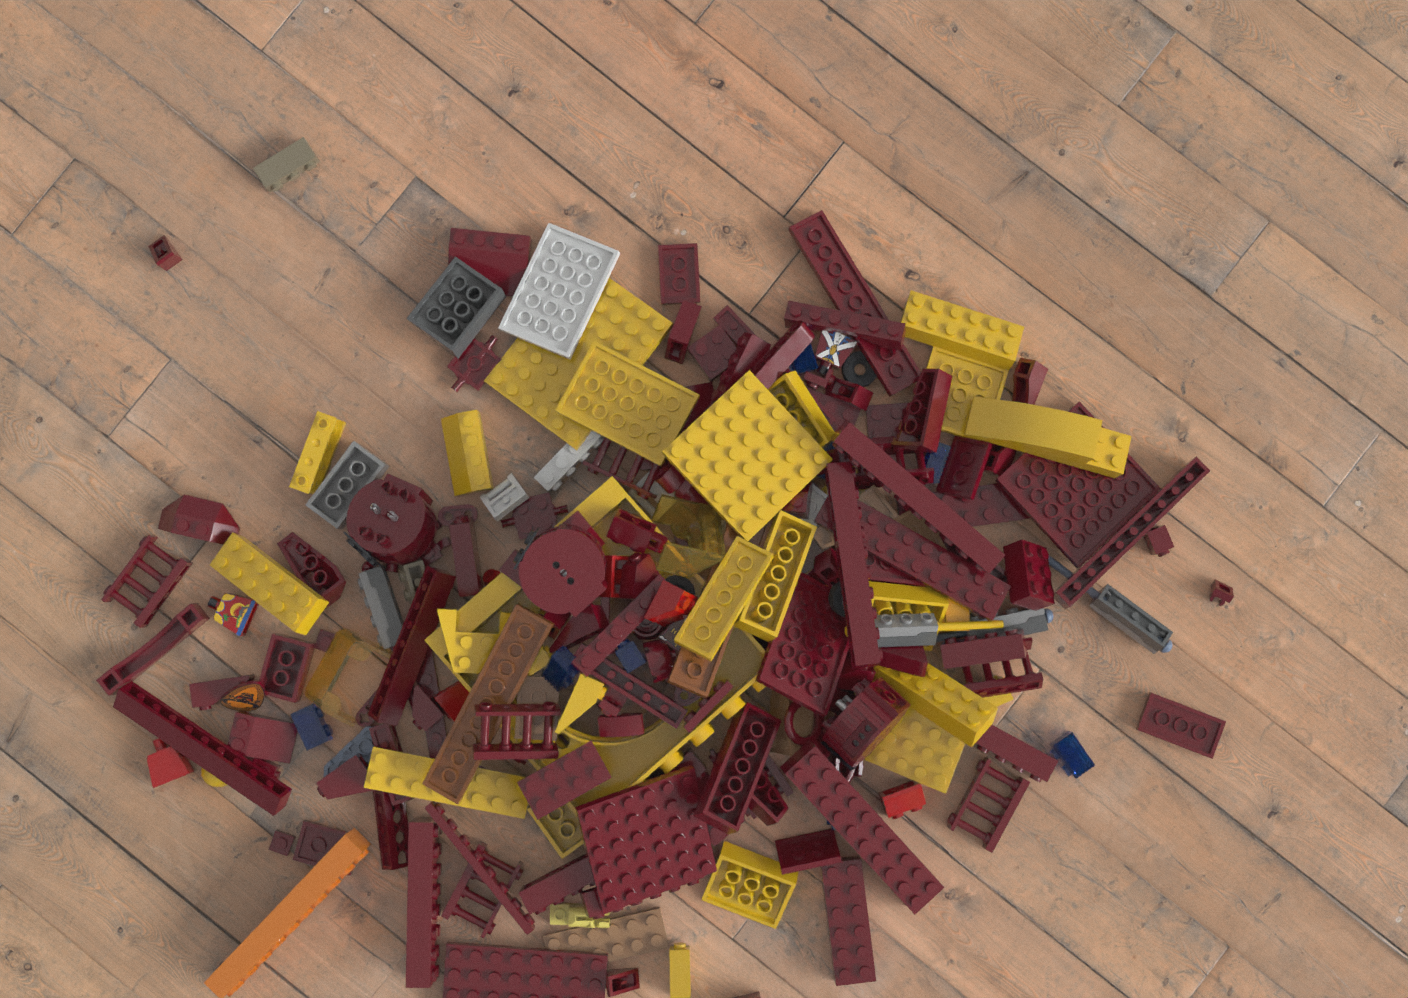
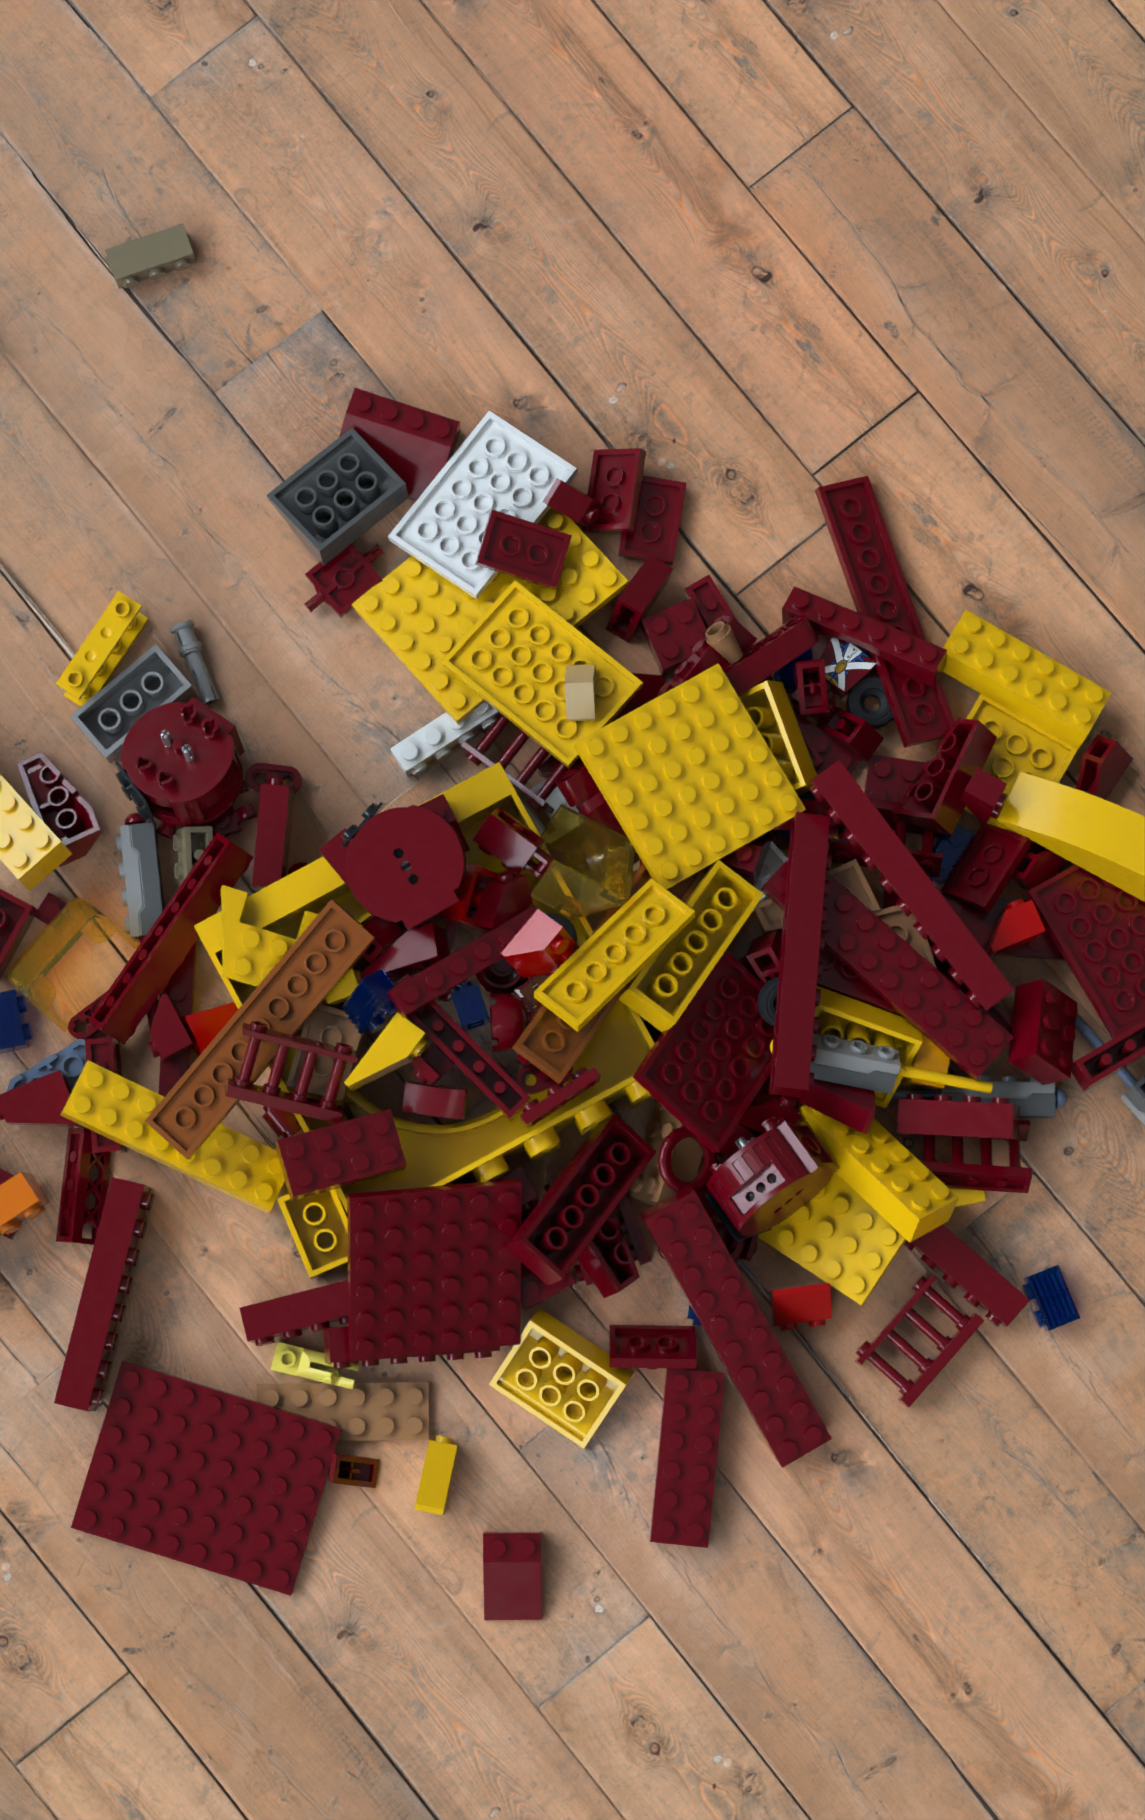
camera: 15 degrees right, 5 degrees down
(380, 438) = (191, 651): none -> light grey pin
(463, 891) = (160, 1294): dark red fence -> none
(467, 453) = (305, 697): yellow slope -> none
(485, 872) = (201, 1273): dark red plate -> none
(507, 500) = (343, 768): white plate -> none
(534, 513) = (375, 789): plate -> none
(594, 318) = (523, 549): none -> dark red plate
(621, 276) = (573, 503): none -> dark red slope
(648, 260) = (617, 486): none -> dark red plate
(657, 411) = (580, 692): none -> tan slope
(748, 352) = (723, 641): none -> medium nougat cone
(816, 369) = (811, 686): none -> dark red slope
(953, 420) = (984, 795): none -> dark red slope
(993, 507) = (1015, 927): none -> red slope

